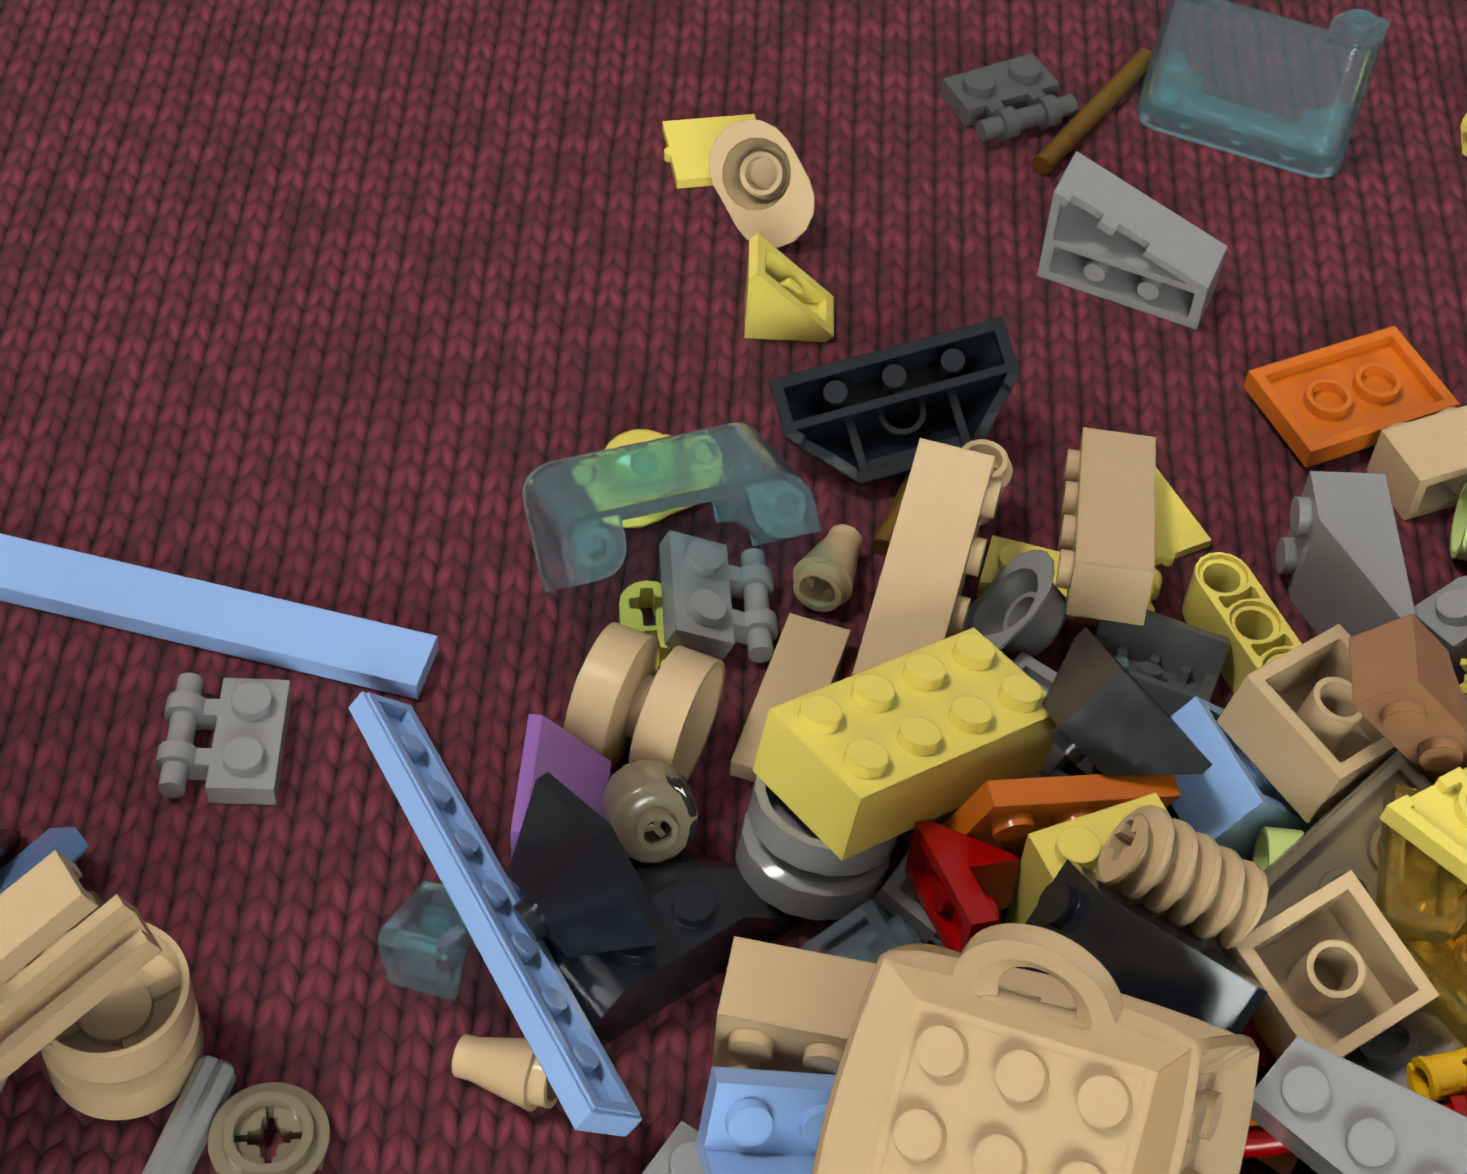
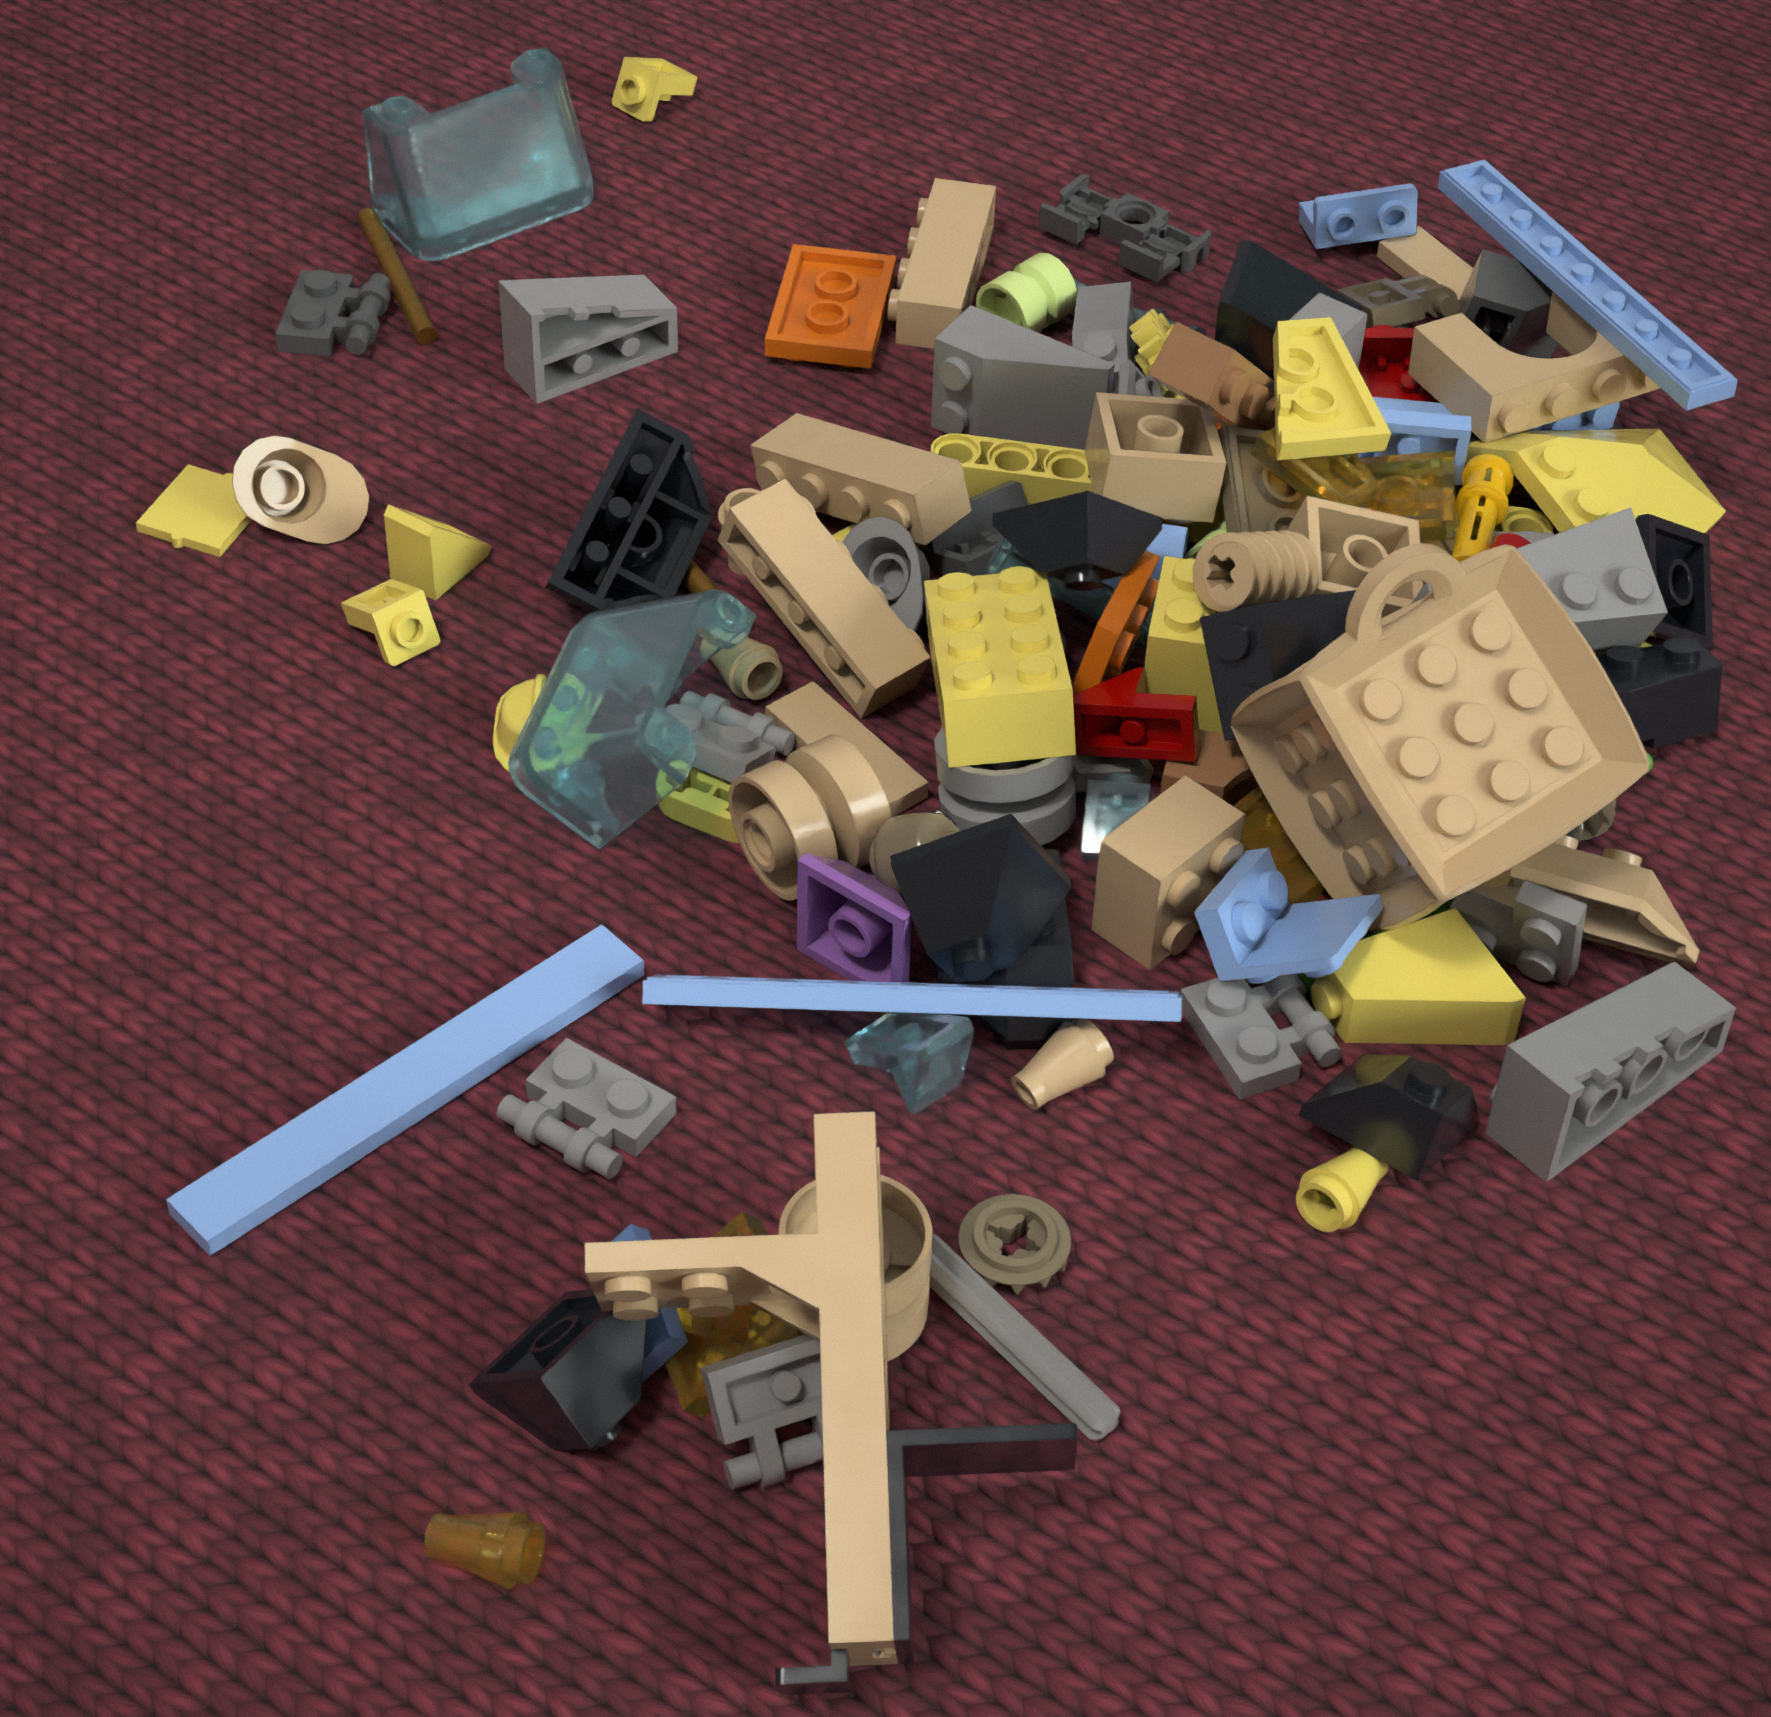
camera: 55 degrees left, 5 degrees down
(677, 320) = (397, 617): none -> light yellow bracket

